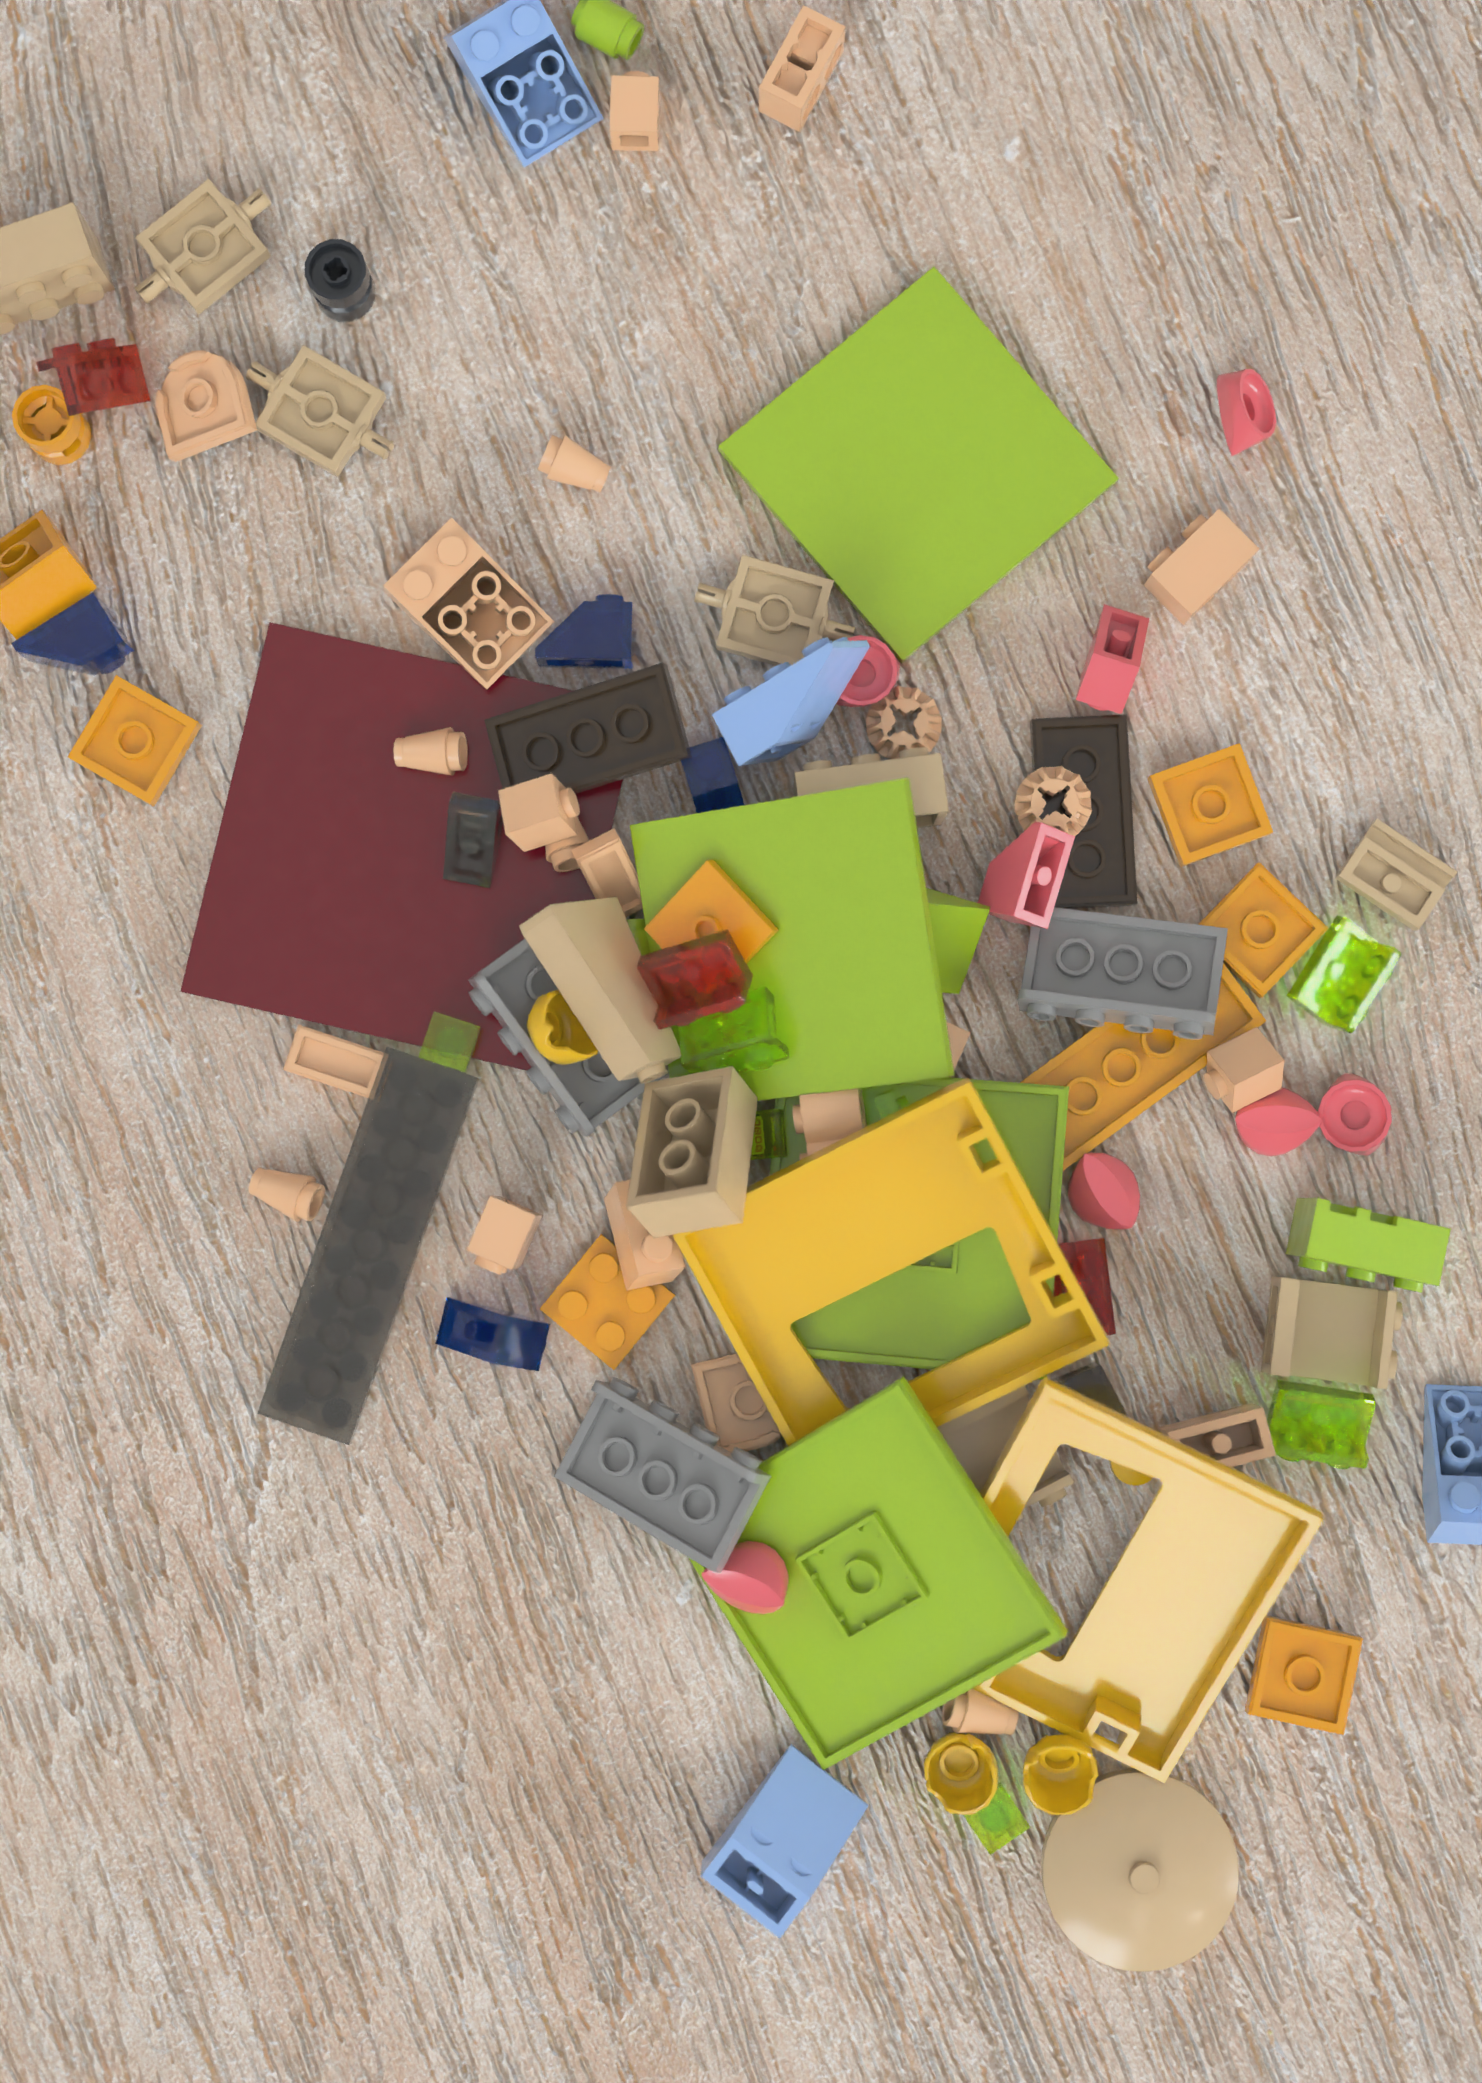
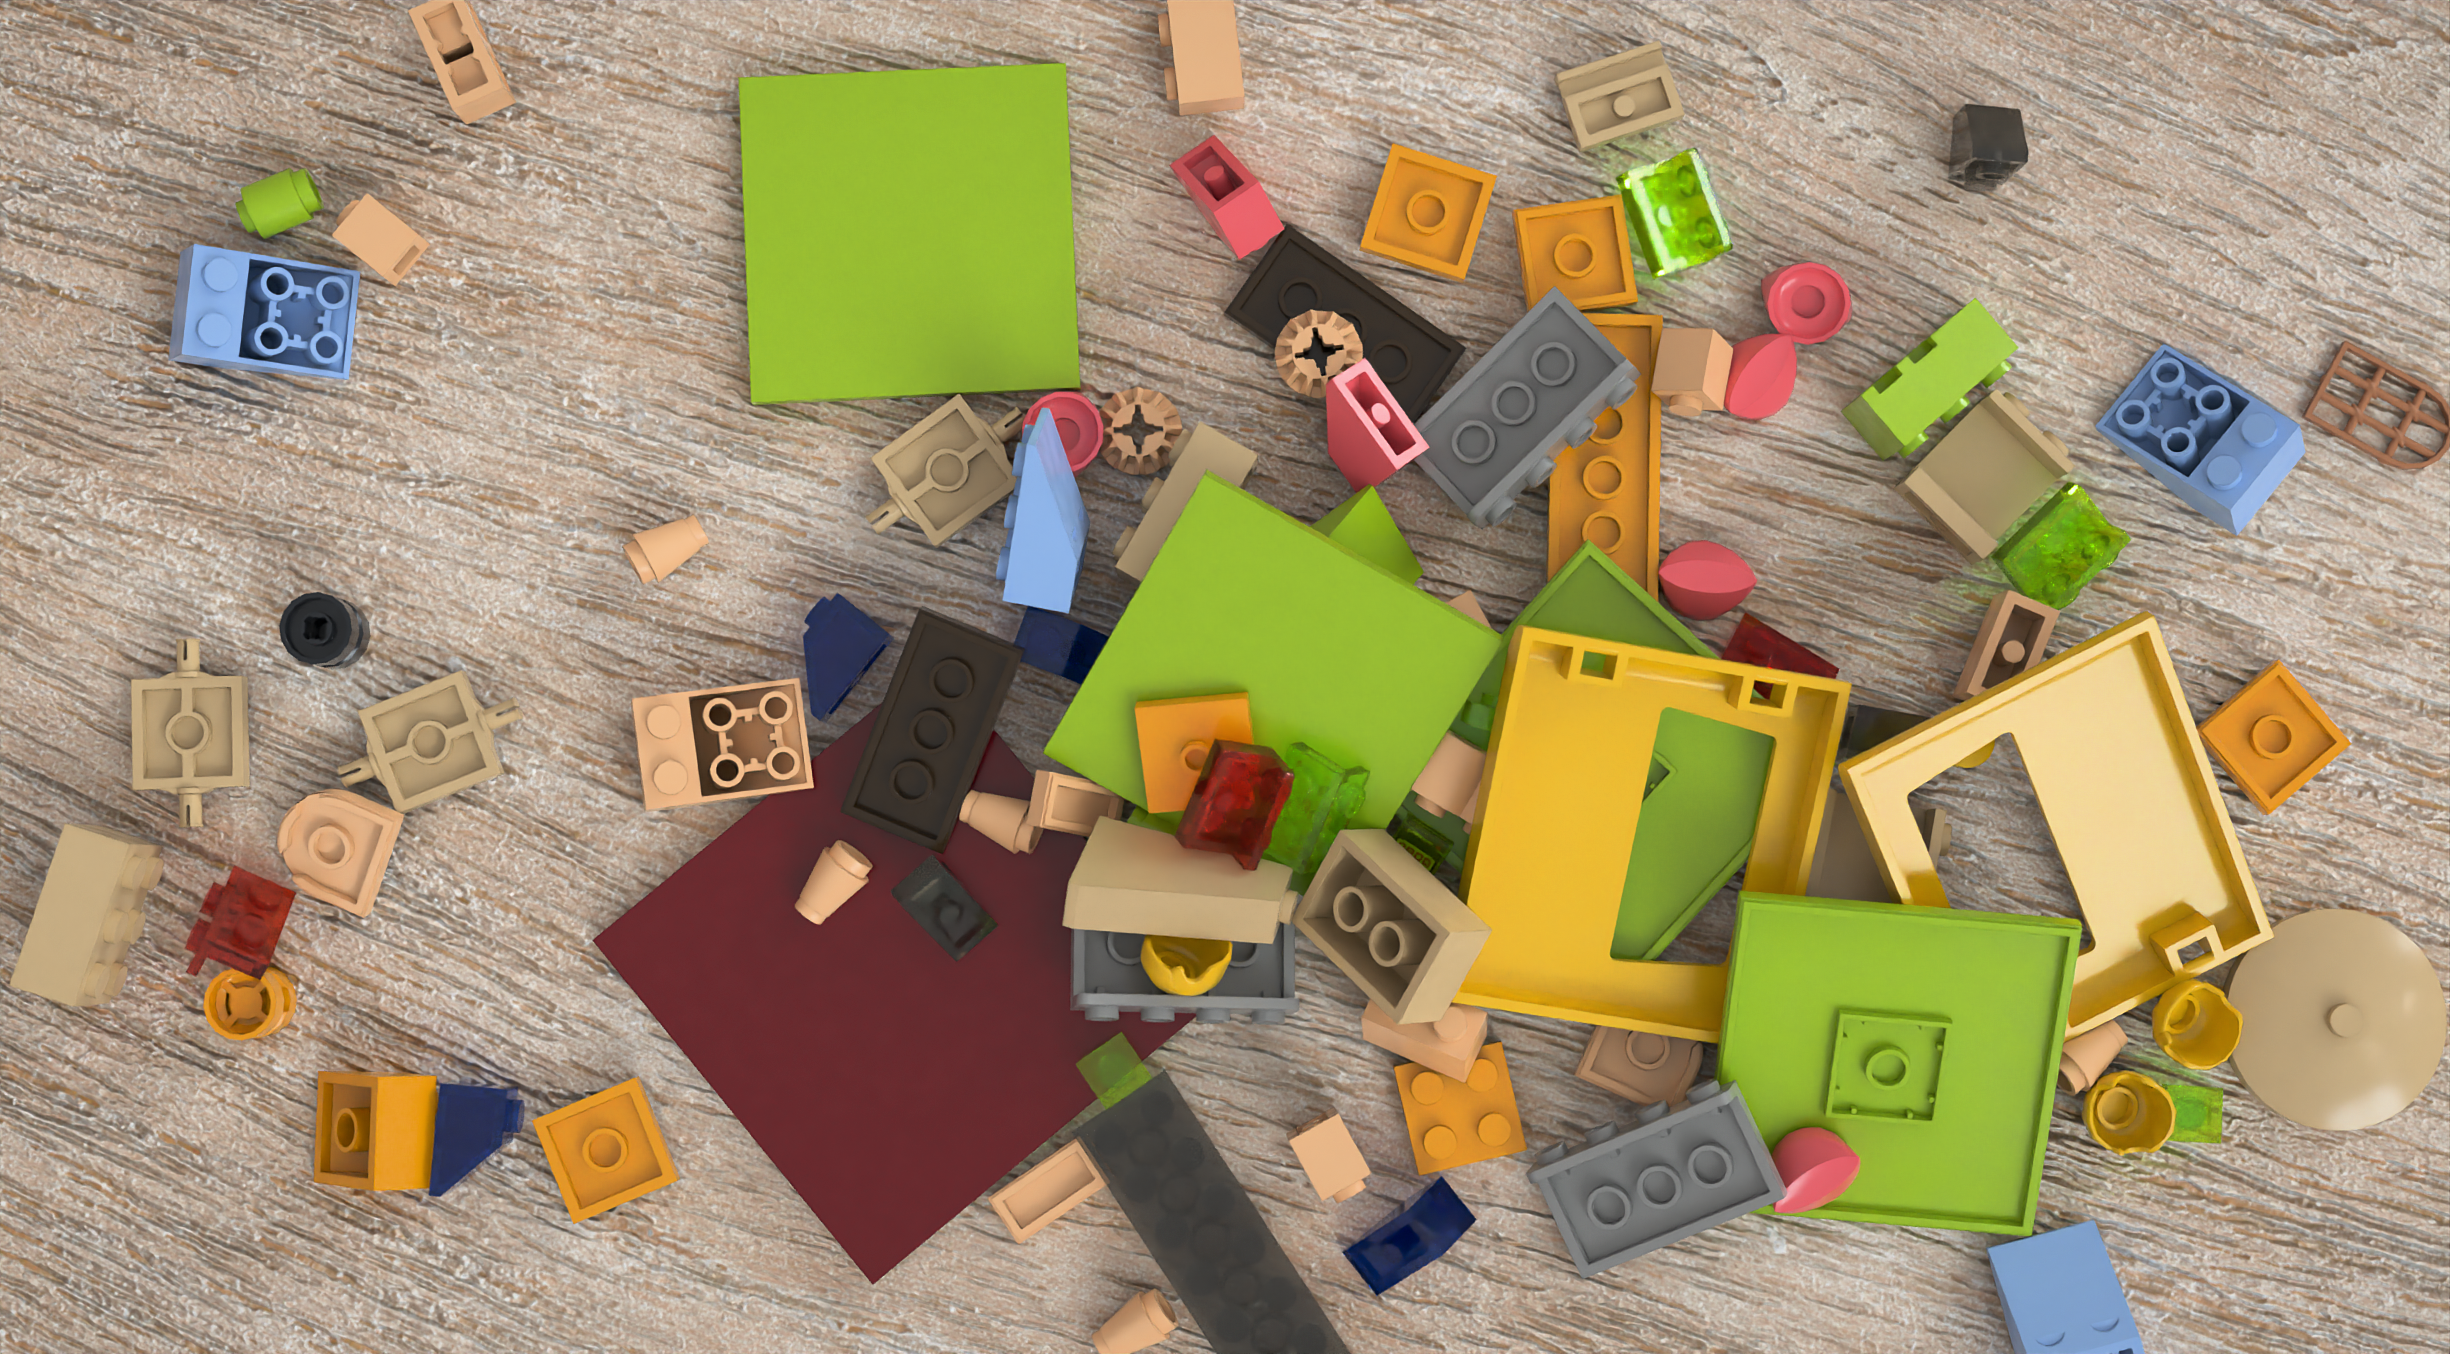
camera: 60 degrees left, 0 degrees up
(539, 812) = (969, 827): light nougat brick -> none

